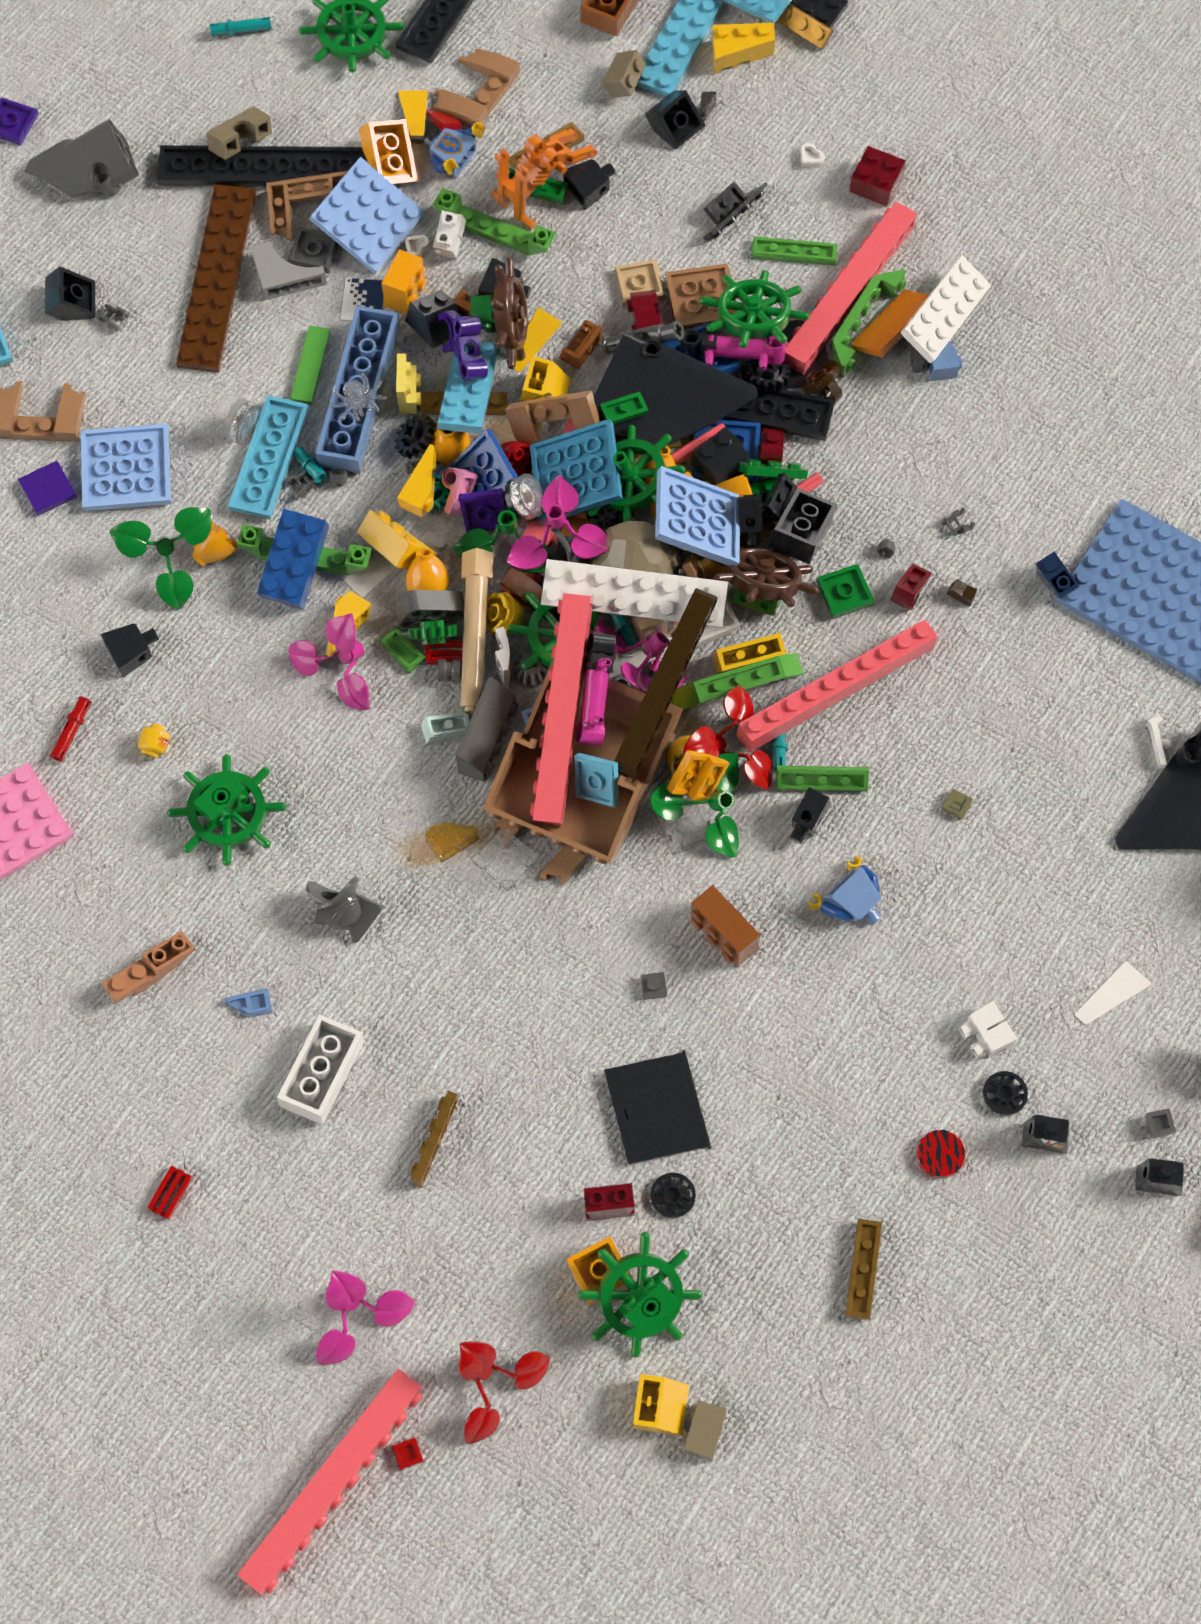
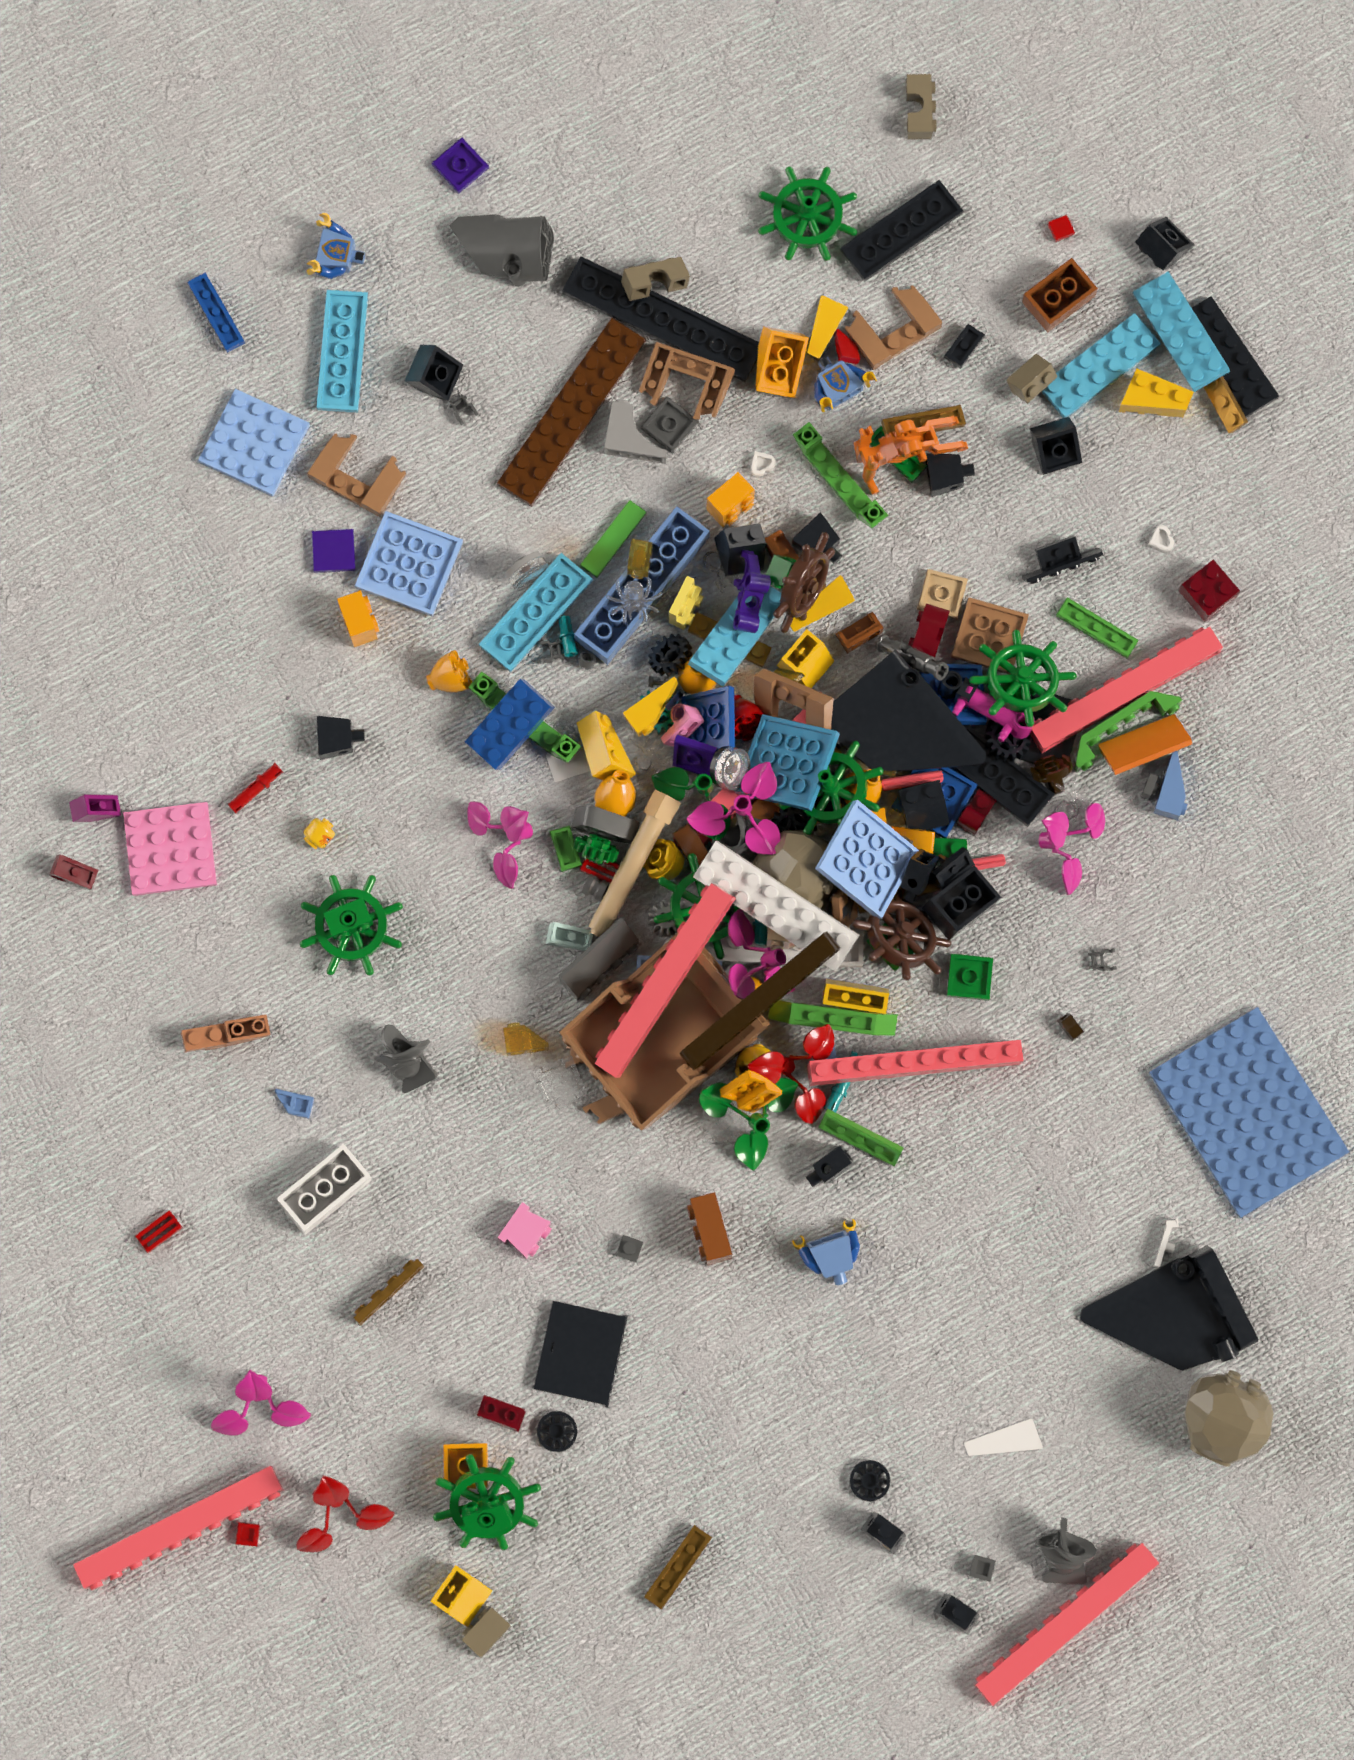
camera: 25 degrees right, 10 degrees up
(93, 529) = (357, 617): none -> light orange brick
(131, 541) = (435, 654): green plant -> none
(240, 26) = (711, 163): teal pin -> none
(345, 356) = (639, 558): none -> clear yellow slope
(350, 604) = (534, 796): yellow slope -> none
(361, 293) = (690, 492): sticker -> none
(367, 215) = (730, 417): light blue plate -> none
(449, 234) = (793, 469): white hips -> none
(503, 657) = (644, 903): white slope -> none
(542, 1016) = (525, 1231): none -> bright pink hips
(549, 76) = (964, 346): none -> black plate
(596, 779) = (664, 1054): medium azure tile -> none
(597, 665) = (711, 959): dark pink piece -> none
(624, 408) = (857, 723): green plate -> none
(707, 103) = (1093, 442): clear smoke slope -> none
(772, 469) = (963, 836): green plate -> none
(857, 403) = (1073, 804): none -> clear animal
(858, 437) = (1054, 838): none -> dark pink plant
(886, 548) = (1026, 954): dark grey hinge -> none
(910, 586) = (1028, 1000): dark red plate -> none
(940, 1154) = (790, 1504): red tile -> none
(945, 309) = (1196, 756): white plate -> none
(957, 804) = (963, 1214): olive tile -> none
(989, 1030) = (882, 1433): white hips -> none
(1056, 576) = (1157, 1054): dark blue slope -> none

